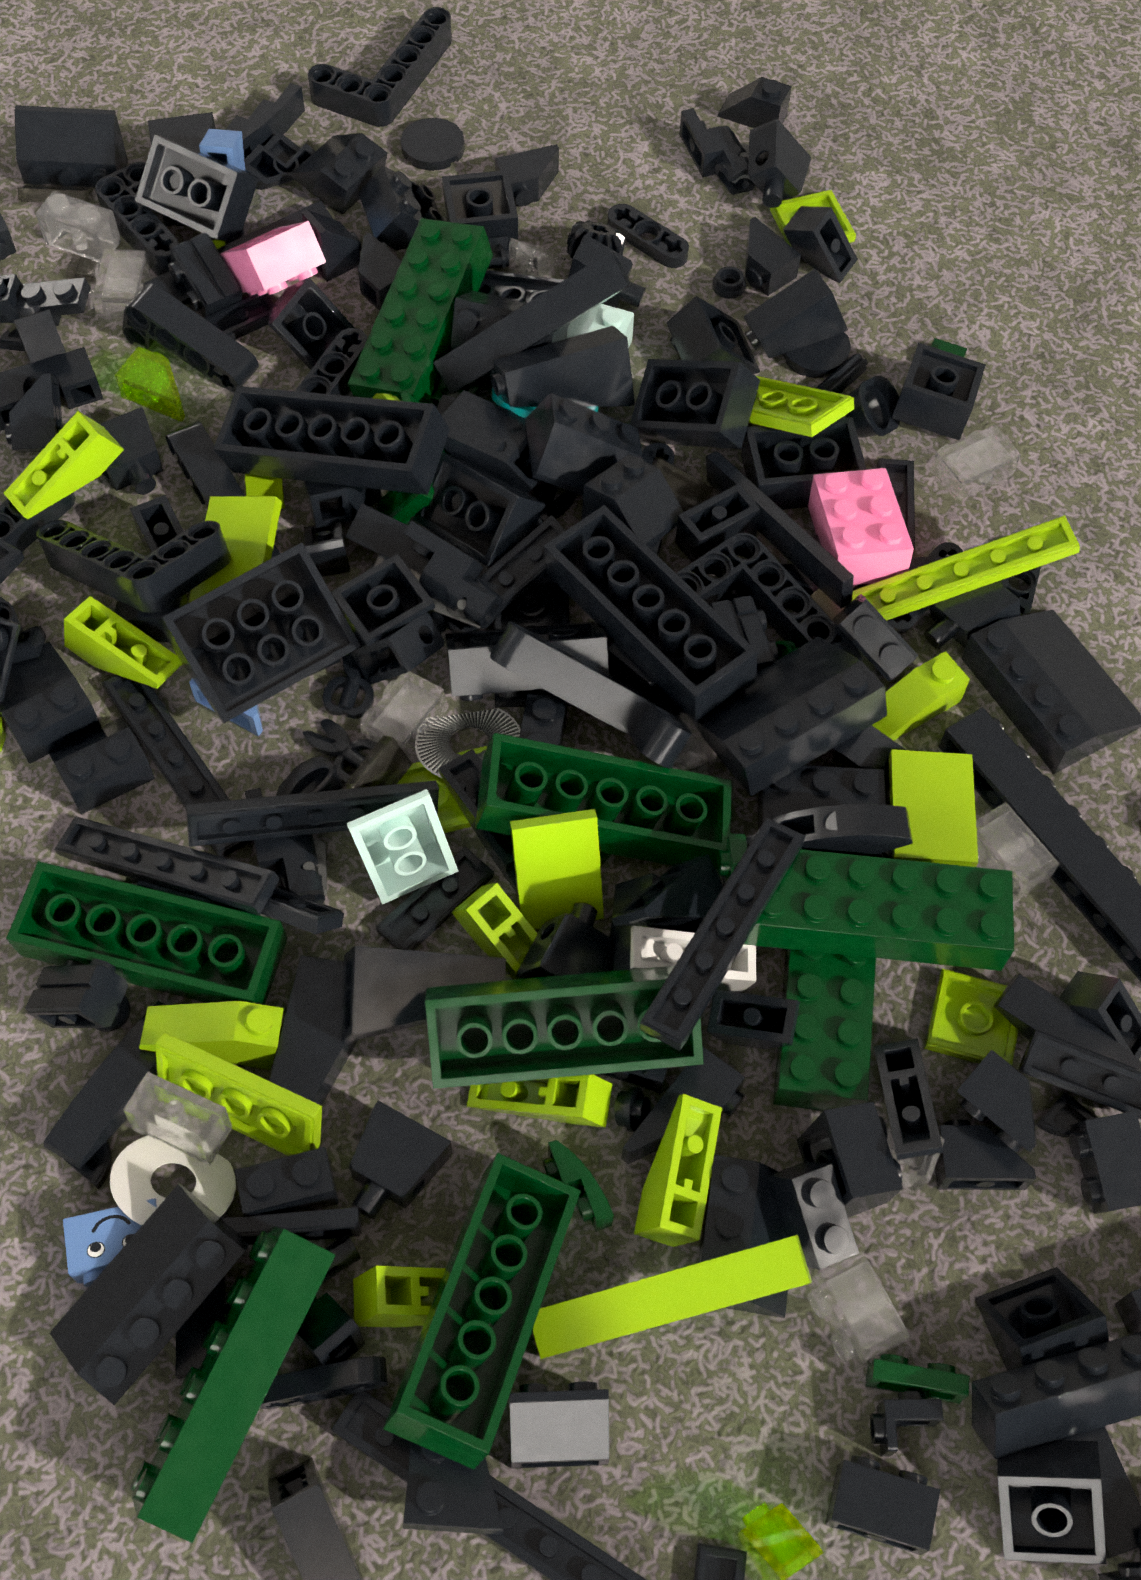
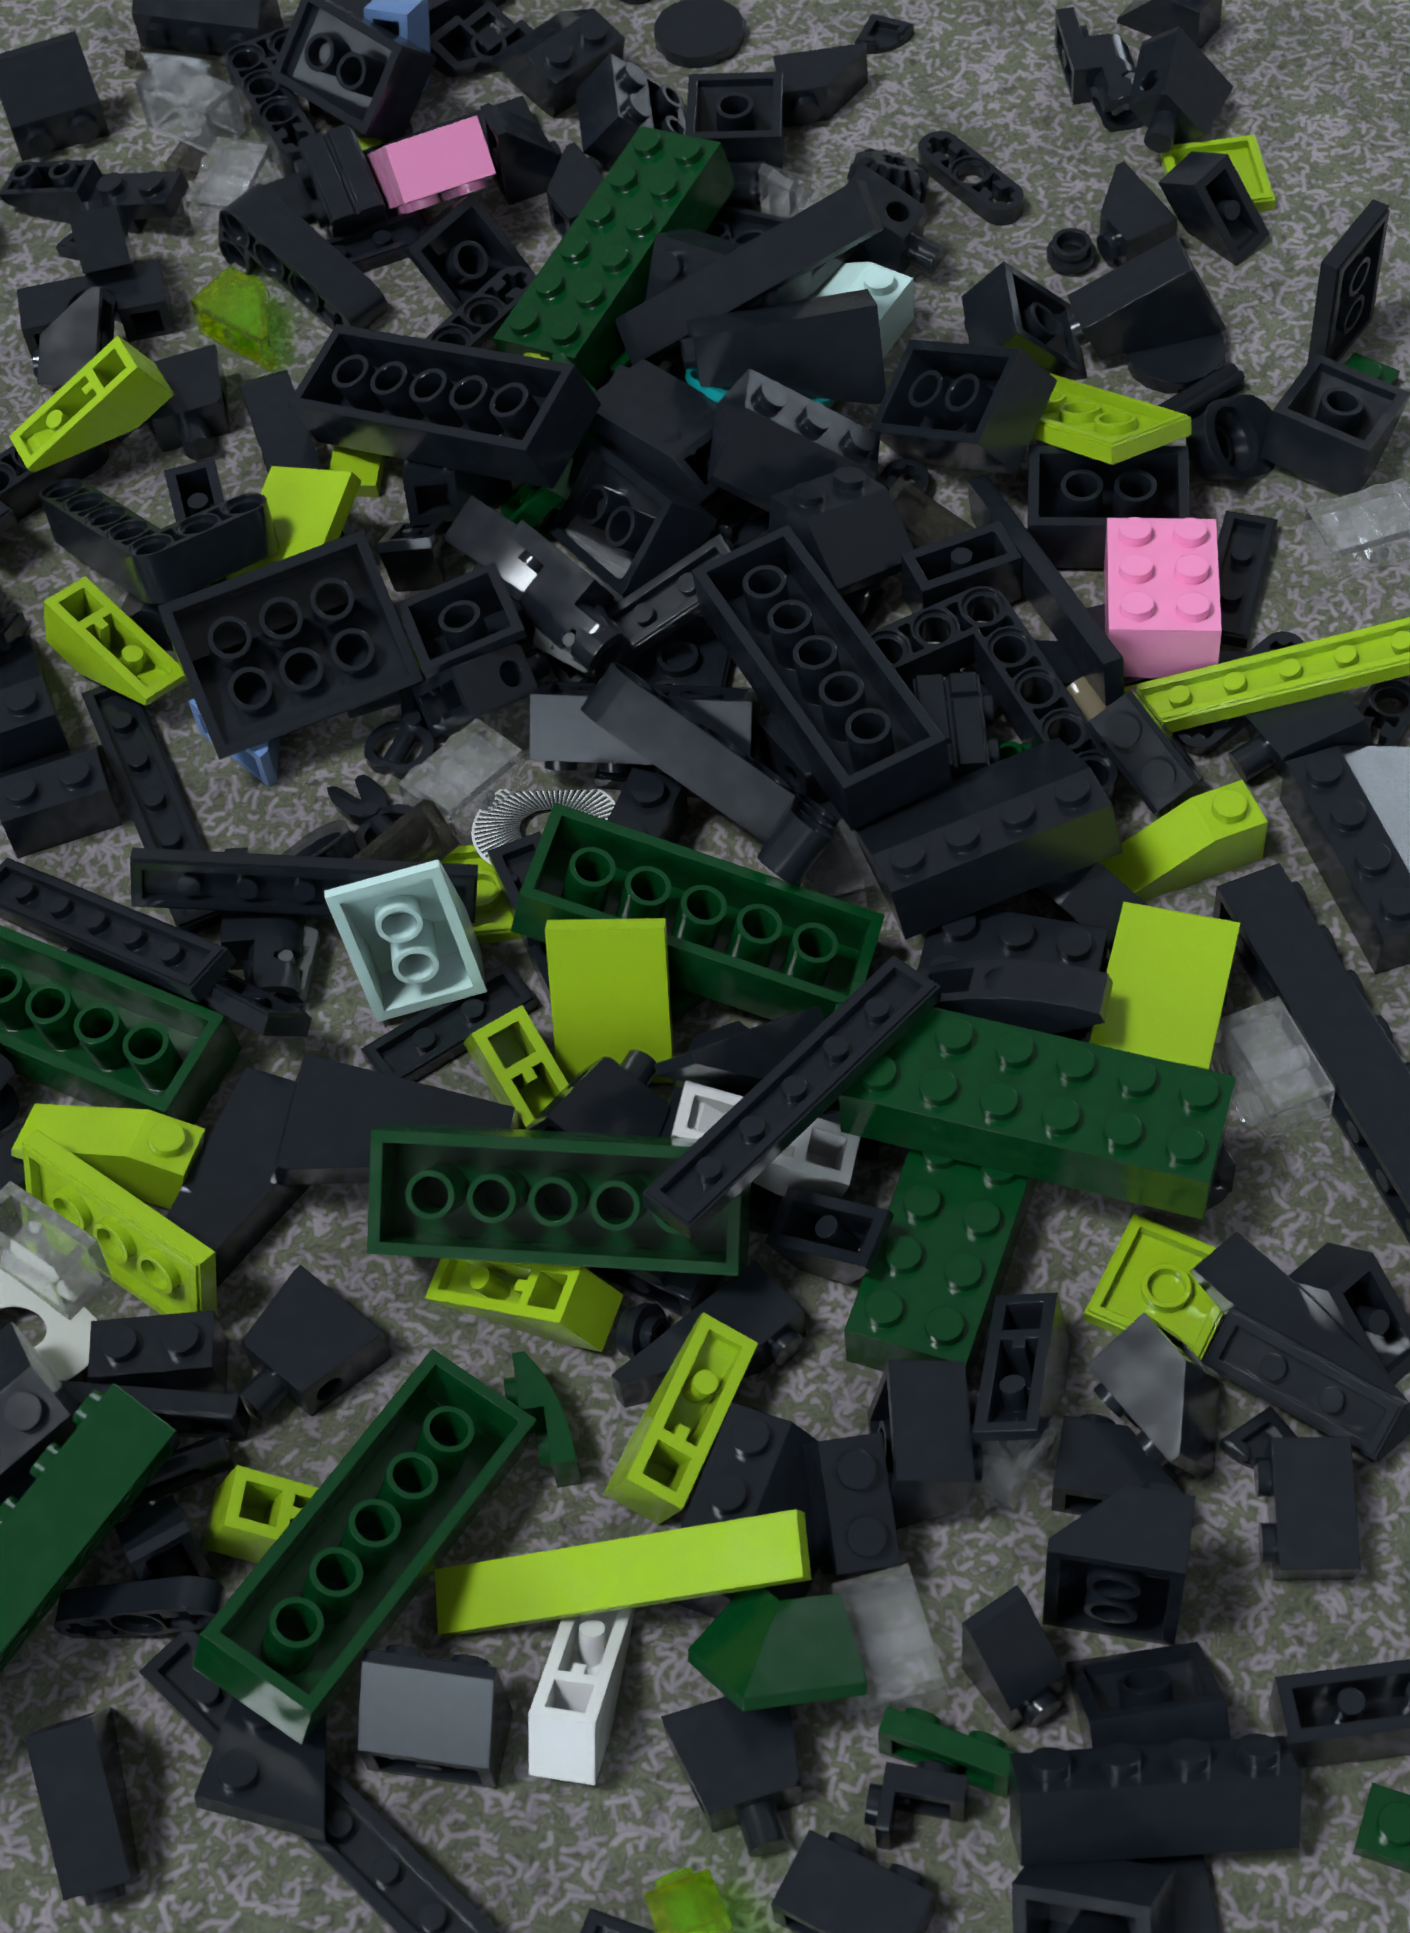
camera: 20 degrees right, 5 degrees down
(562, 135) = (884, 32): none -> black tile
(655, 1391) = (578, 1697): none -> white slope
(779, 1415) = (739, 1768): none -> black torso
(794, 1337) = (780, 1651): none -> dark green slope
(931, 294) = (1349, 284): none -> black tile
(950, 1311) = (1012, 1661): none -> black slope
(1024, 1232) = (1122, 1565): none -> black slope

